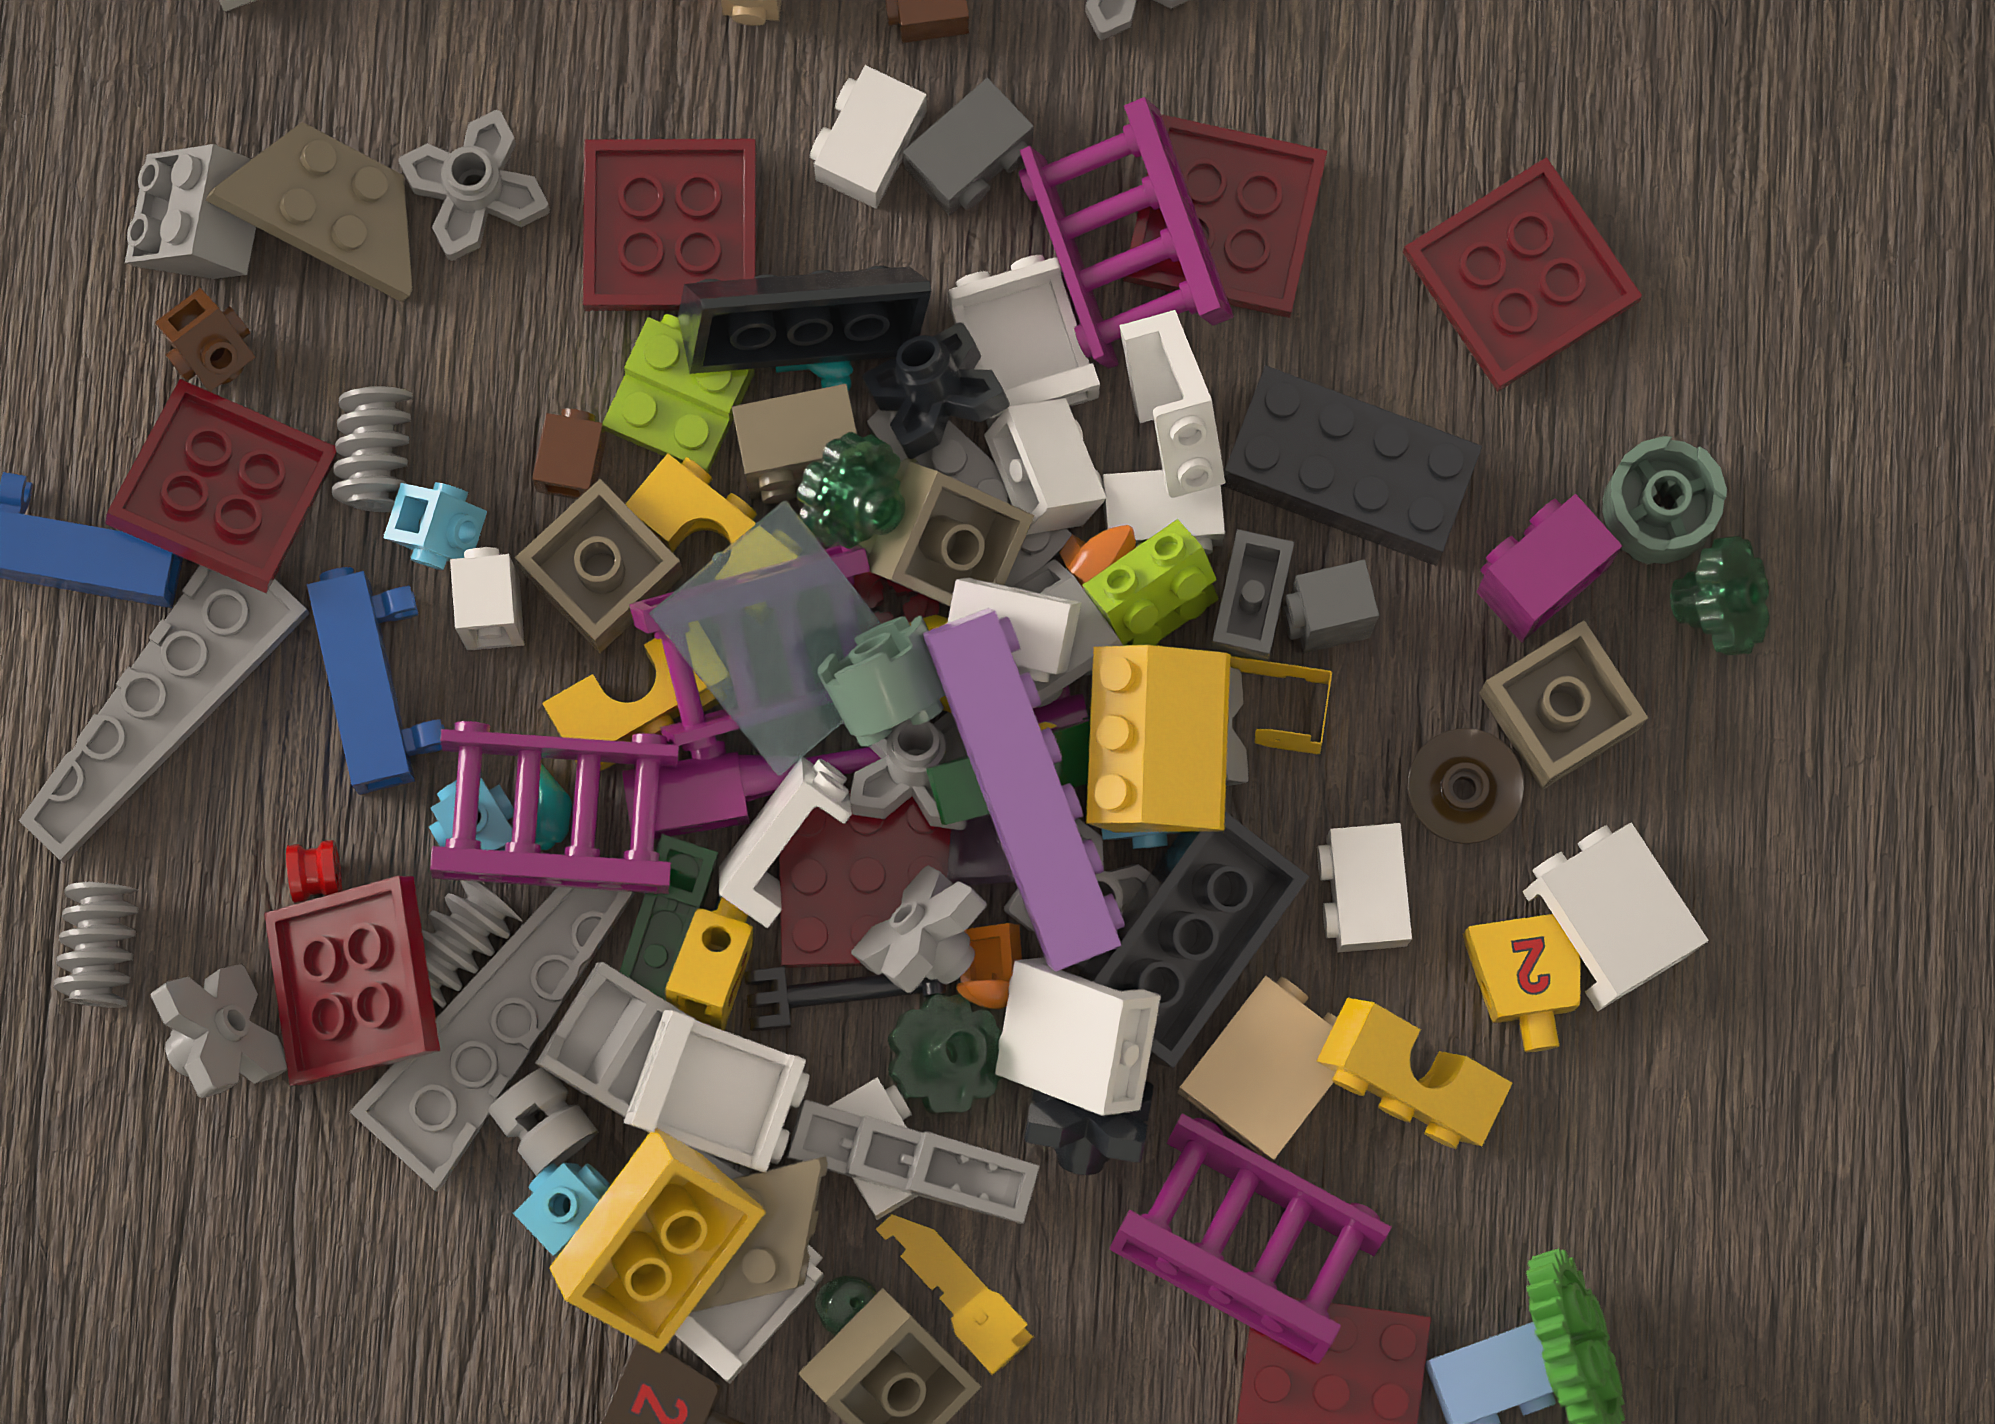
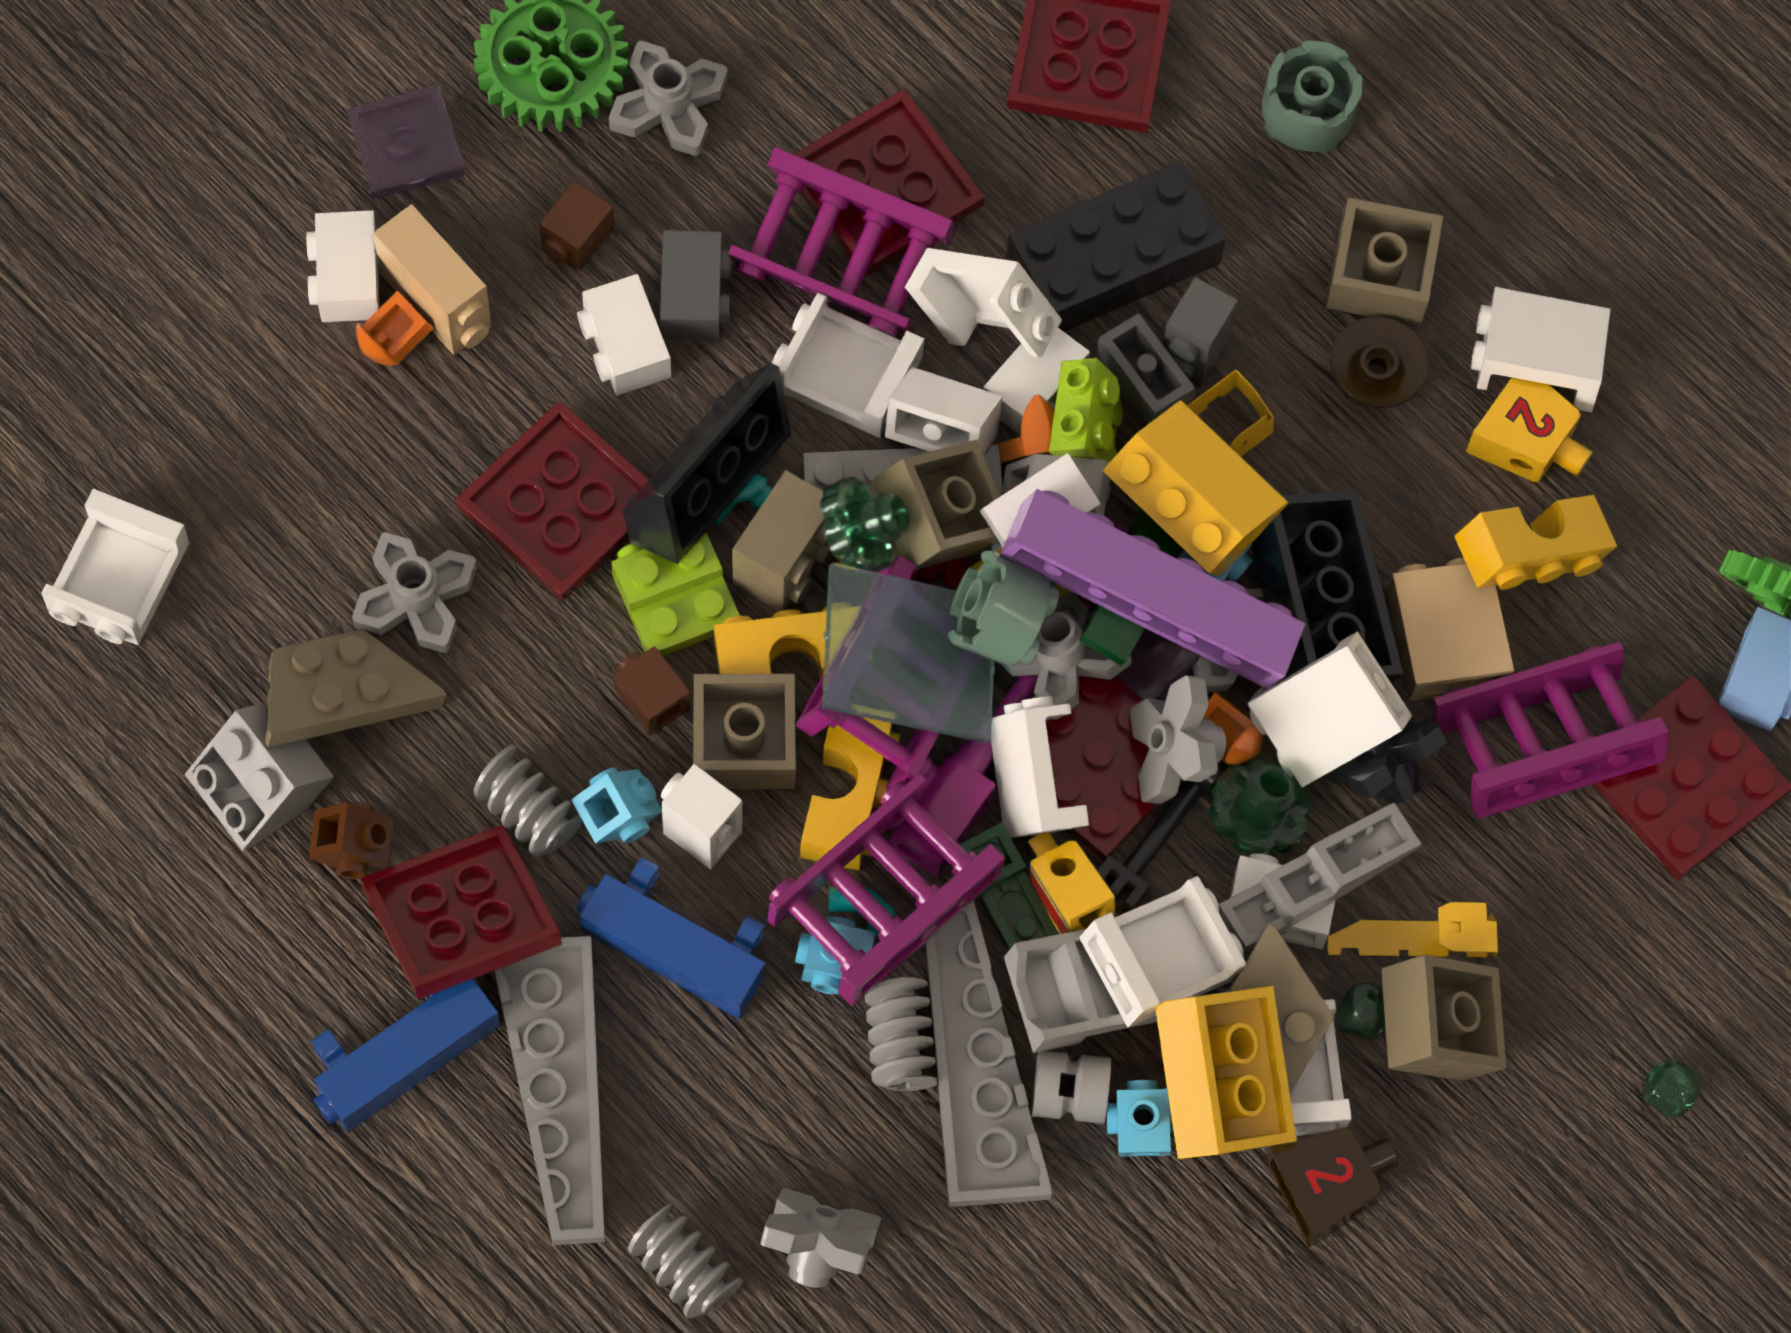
camera: 50 degrees left, 10 degrees down
(313, 870) = (768, 1085): red wheel -> none
(352, 981) = (869, 1119): dark red plate -> none
(930, 384) = (831, 432): black plant -> none
(1366, 888) = (1389, 473): white brick -> none
(1548, 567) = (1290, 192): magenta brick -> none
(1725, 596) = (1402, 117): clear green plant -> none

